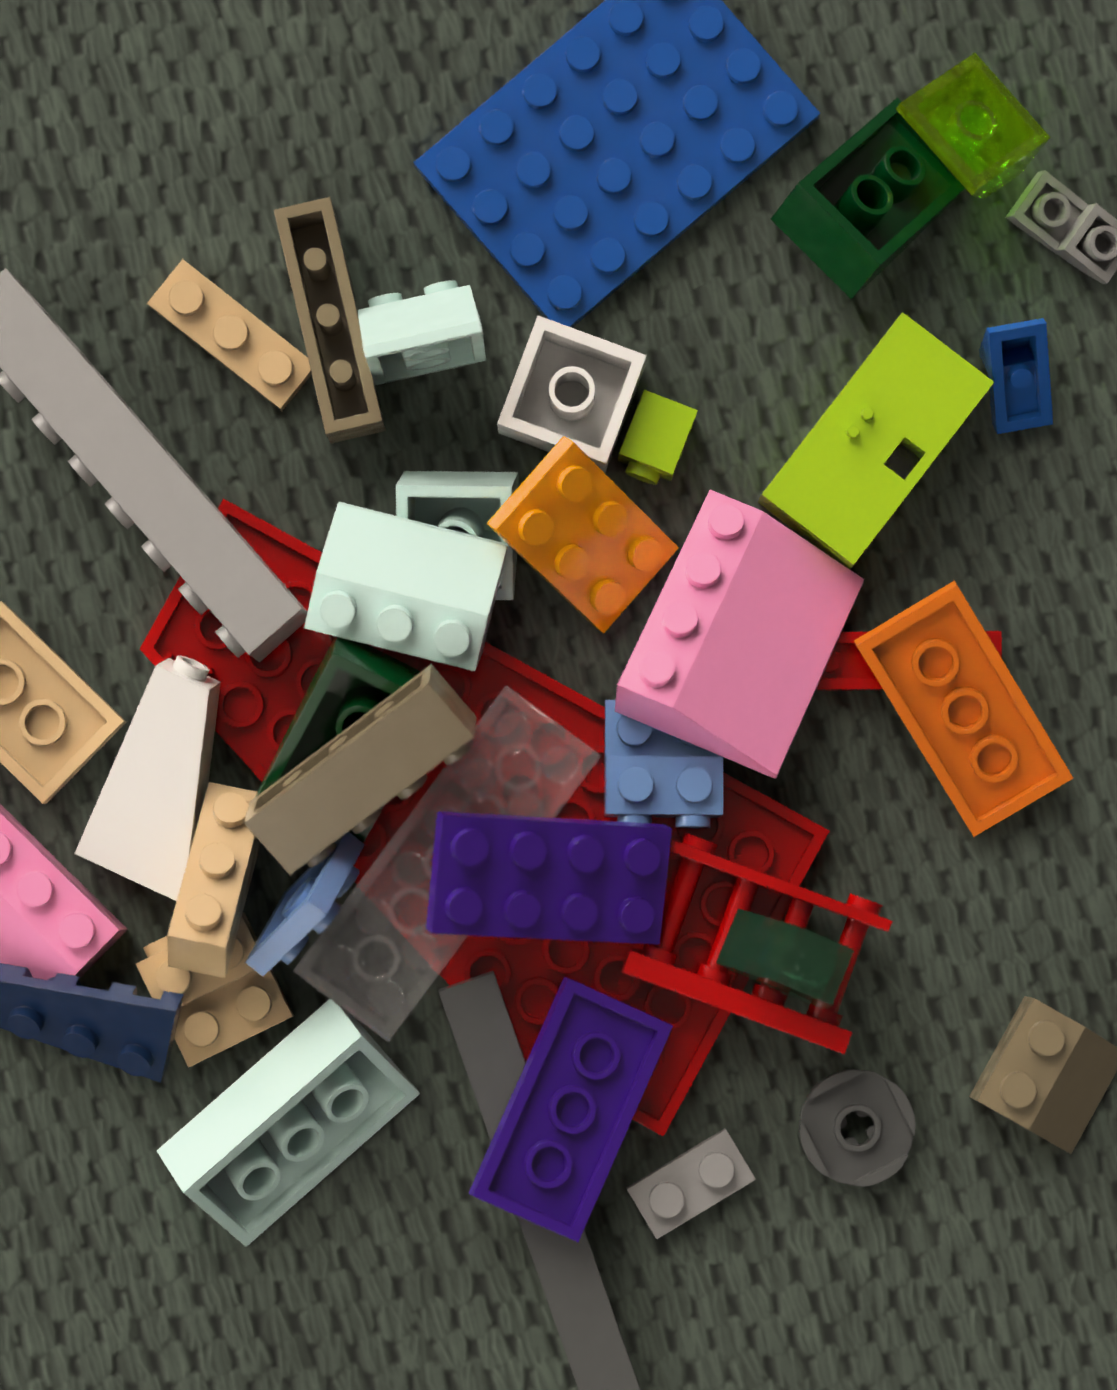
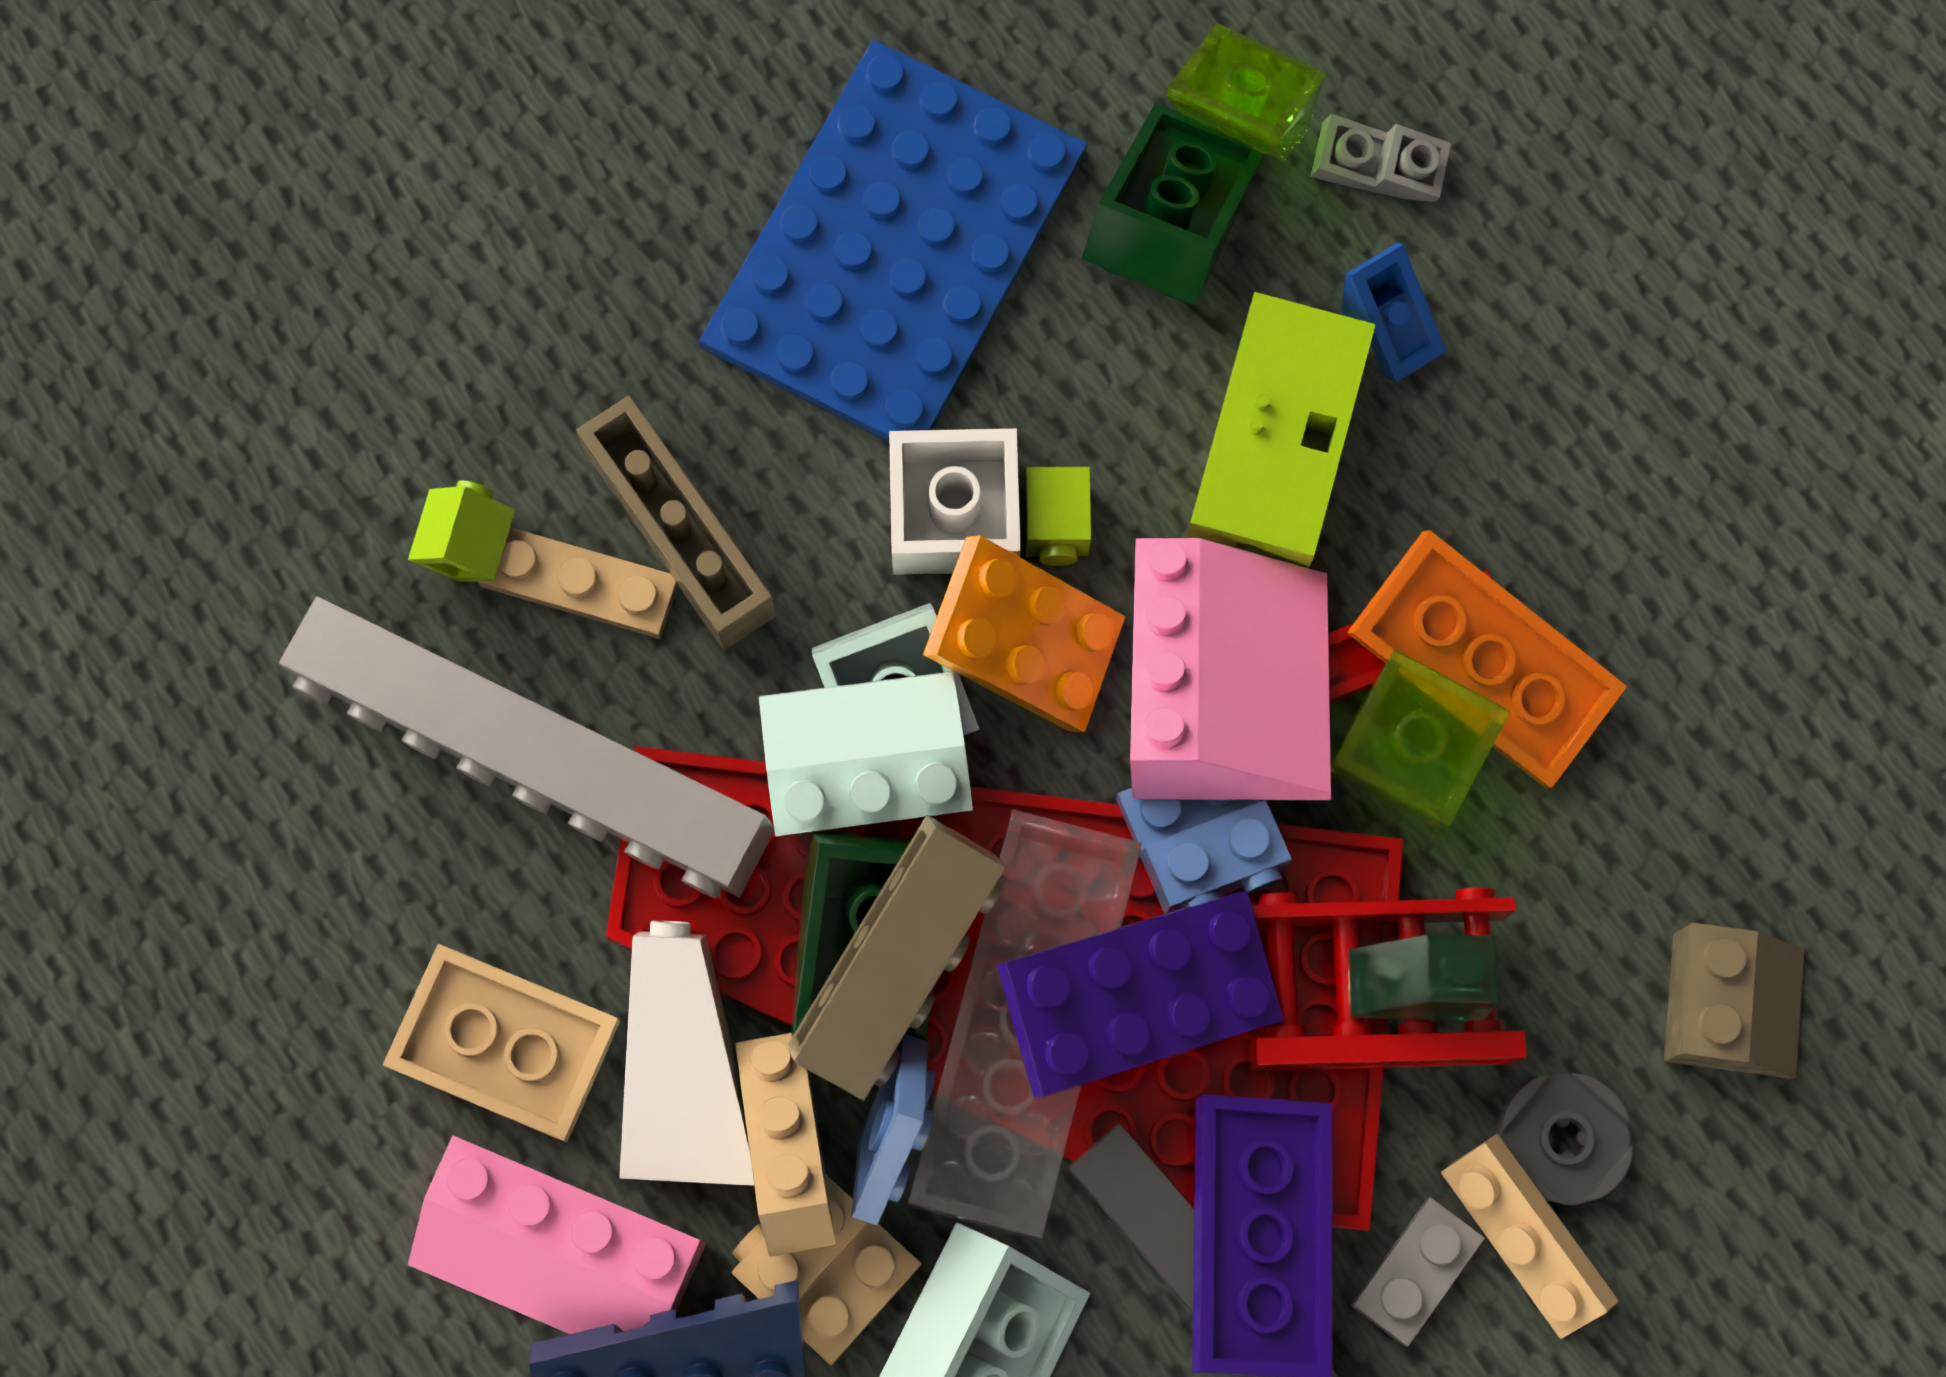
camera: 25 degrees left, 10 degrees down
(148, 257) = (462, 532): none -> lime brick
(421, 332) = (782, 497): light aqua slope -> none
(791, 1193) = (1529, 1236): none -> tan plate
(874, 755) = (1418, 740): none -> clear neon green slope

